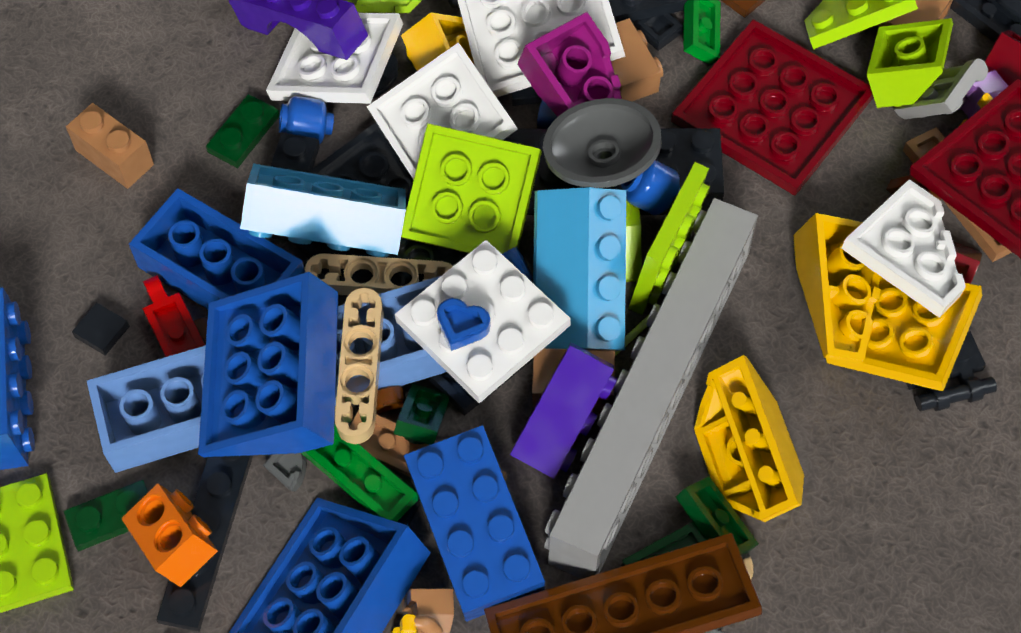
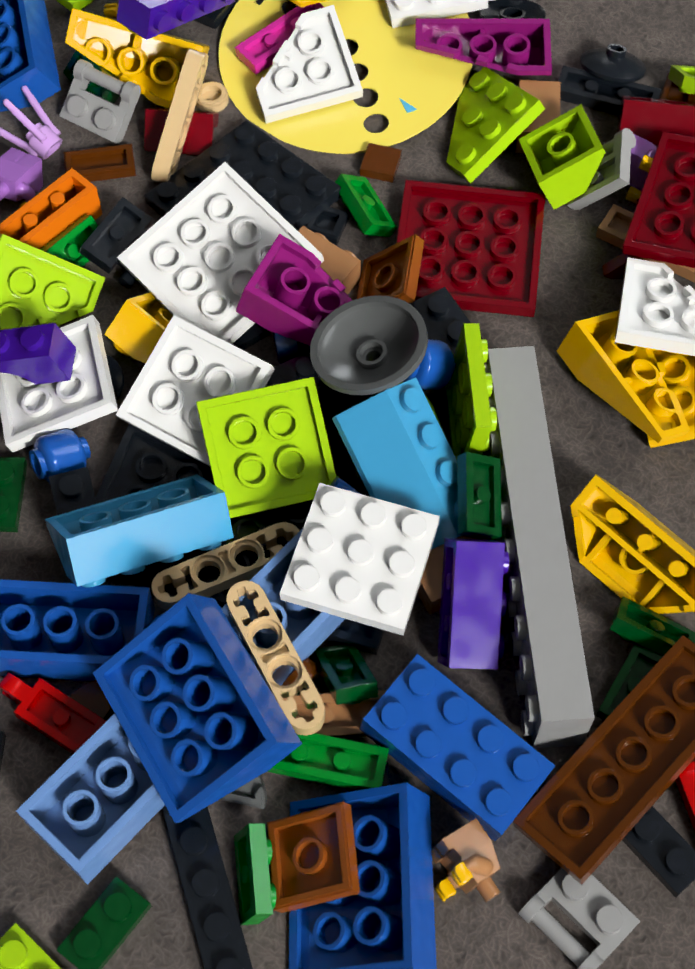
camera: 30 degrees left, 0 degrees up
(170, 534) = (180, 921): orange brick -> none
(242, 552) = (255, 891): none -> green plate
(302, 548) = (313, 857): none -> dark orange tile
(462, 323) = (351, 569): blue tile -> none
(622, 320) = (479, 496): none -> dark green plate
(683, 96) = (393, 271): none -> dark orange tile

